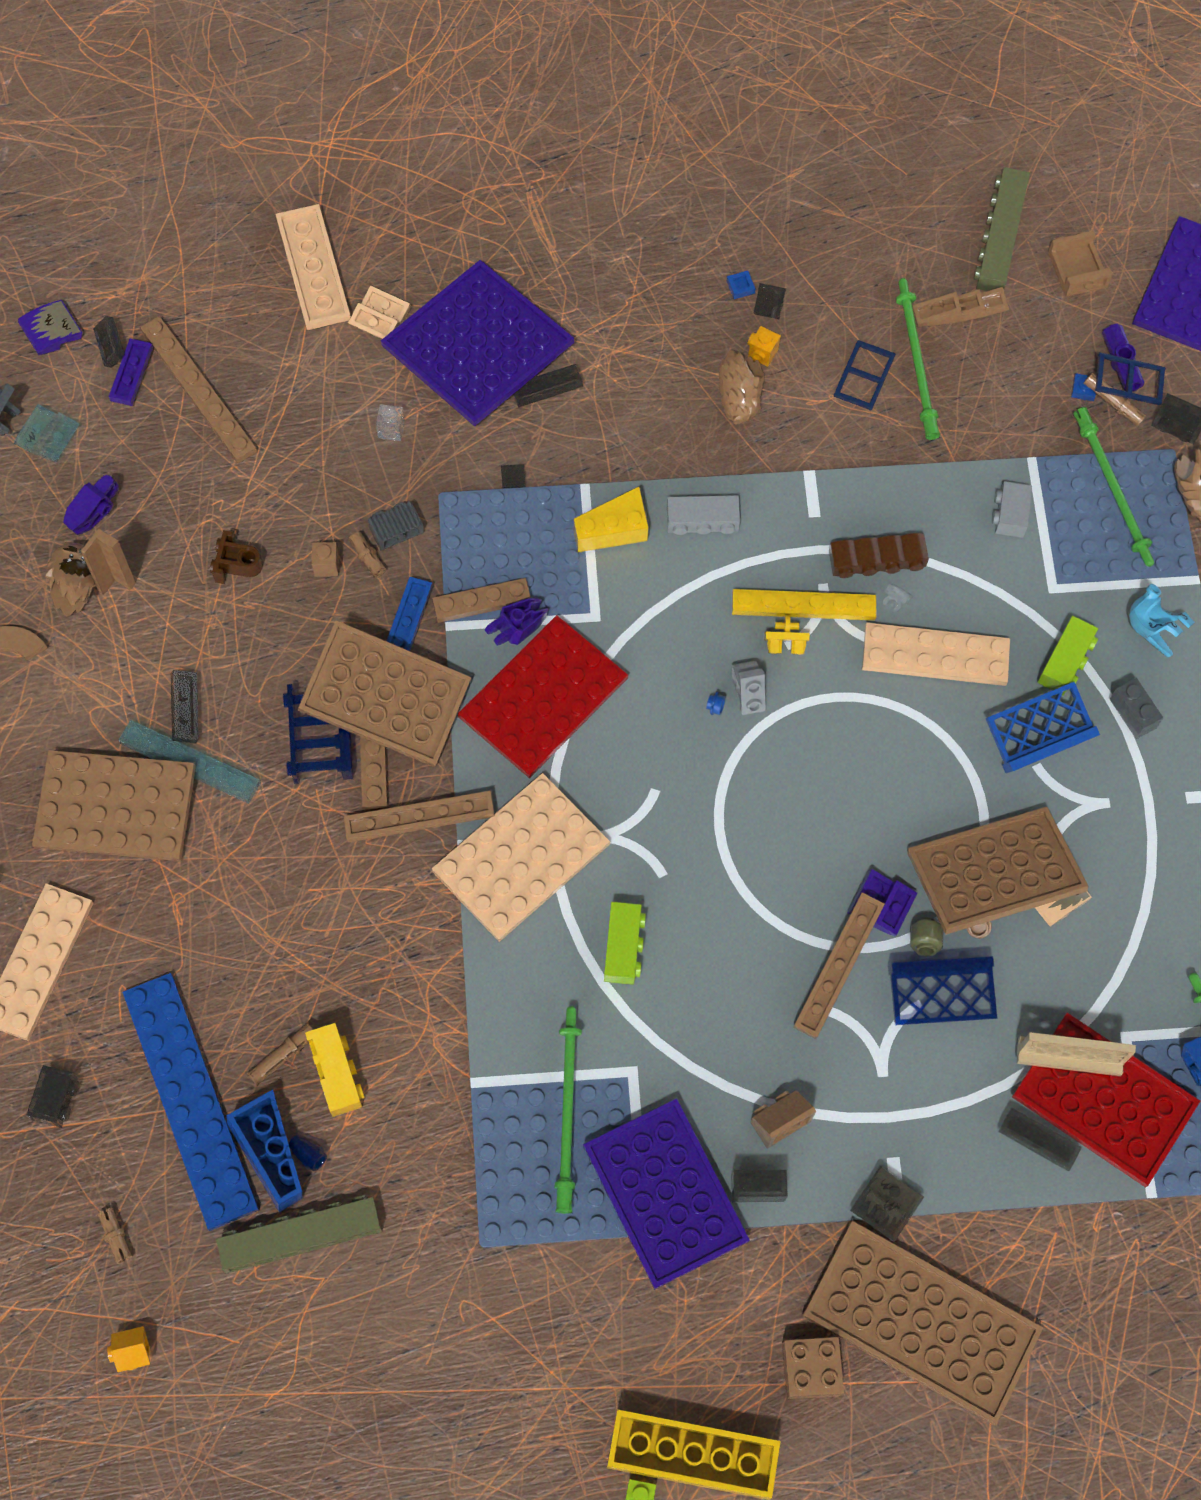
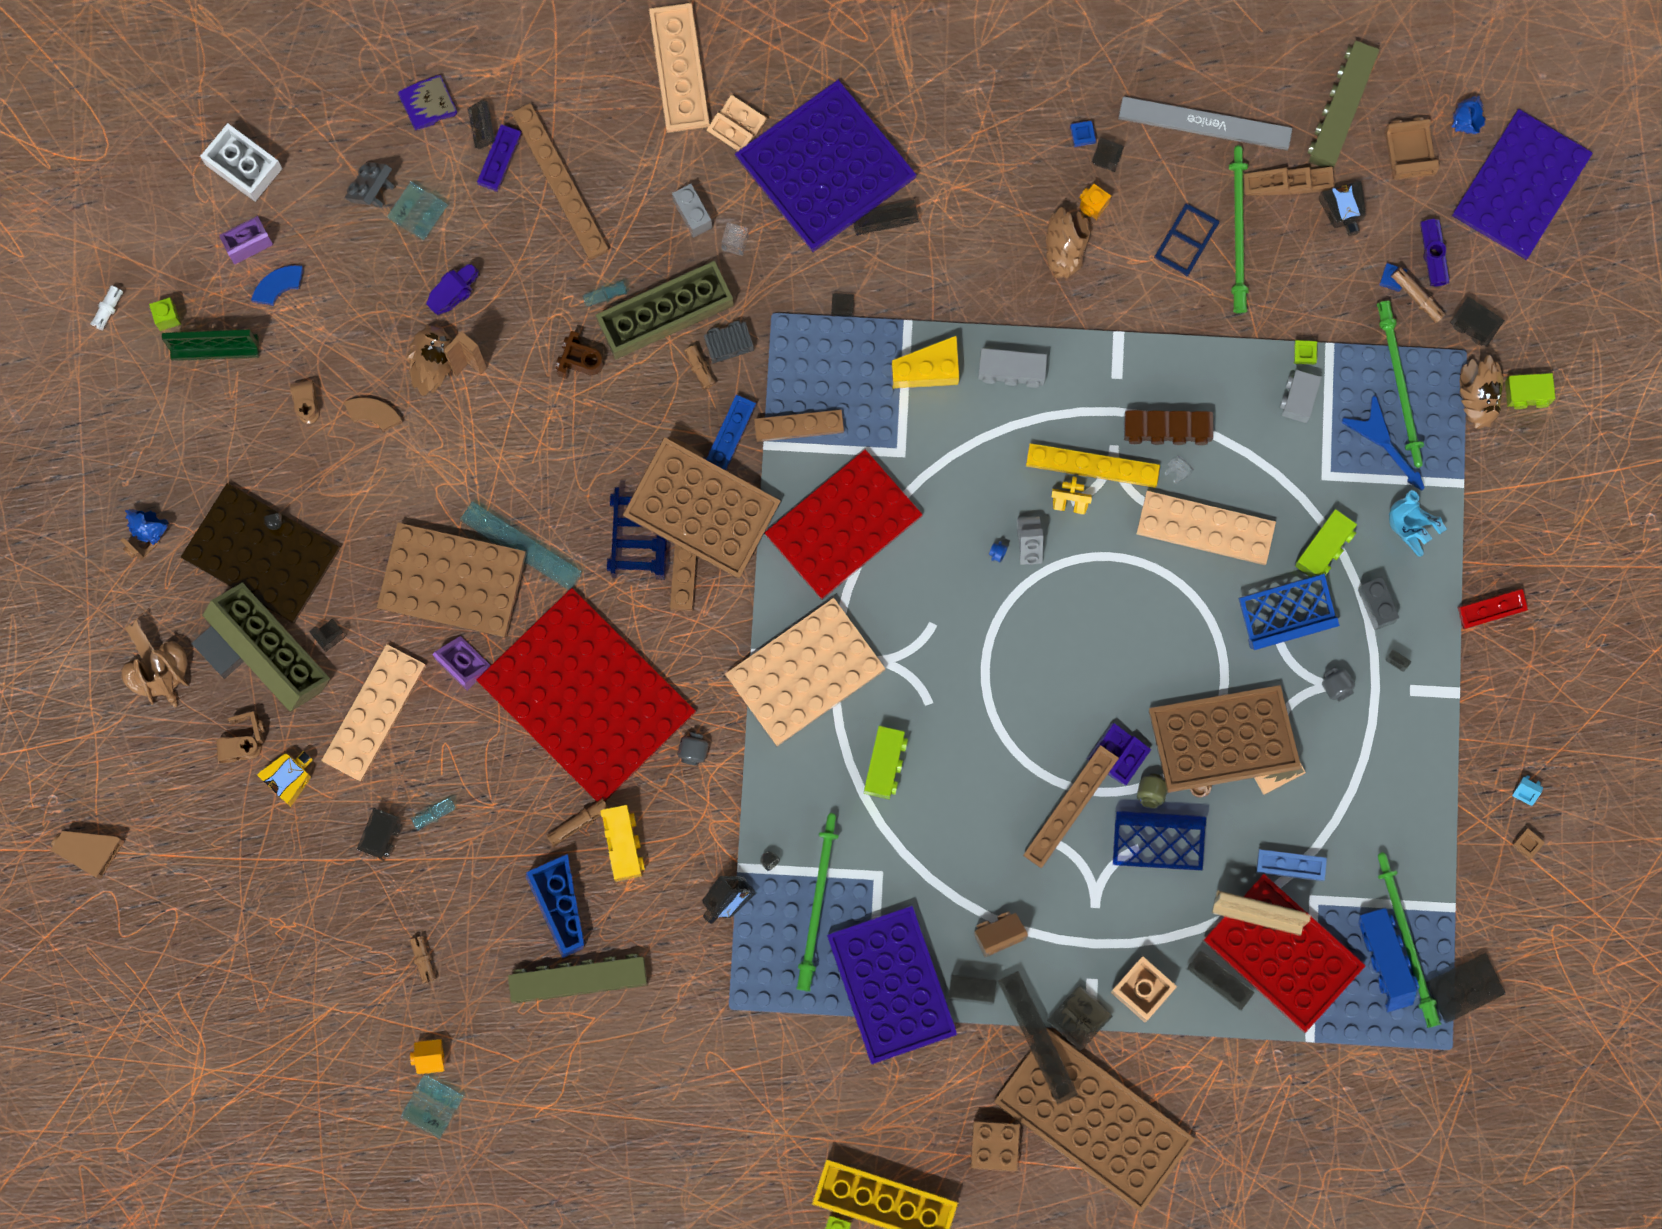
camera: 10 degrees right, 10 degrees up
(114, 1065) = (433, 814): none -> clear light blue axle
(132, 893) = (461, 662): none -> medium lavender slope
(139, 1410) = (432, 1106): none -> clear light blue slope
(184, 706) = (521, 495): clear smoke plate -> none
(190, 1102) = (495, 852): blue plate -> none
(256, 493) = (604, 294): none -> clear light blue axle
(278, 914) = (586, 696): none -> red plate
(308, 1153) = (592, 911): clear blue cone -> none
(322, 499) = (664, 310): none -> olive brick
(325, 559) = (661, 368): medium nougat brick -> none
(341, 399) = (692, 210): none -> light grey brick
(404, 956) = (692, 749): none -> dark grey head
(419, 816) = (719, 624): medium nougat plate -> none
(462, 1116) = (726, 897): none -> clear smoke torso
(506, 1068) = (769, 860): none -> clear smoke hinge
(517, 621) = (828, 452): dark purple hinge -> none
(843, 1233) = (1037, 1038): none -> clear smoke plate
(864, 263) = (1205, 123): none -> light grey tile
(955, 1159) = (1143, 989): none -> light nougat brick
(1009, 466) = (1305, 352): none -> lime plate
(1022, 324) = (1345, 206): none -> torso
(1095, 999) = (1291, 865): none -> medium blue plate
(1099, 537) = (1377, 432): none -> blue piece
(1109, 798) = (1338, 684): none -> dark grey head
(1128, 393) = (1430, 293): dark blue window -> none
(1131, 226) = (1469, 116): none -> blue hair
(1169, 765) = (1398, 660): none -> clear smoke tile

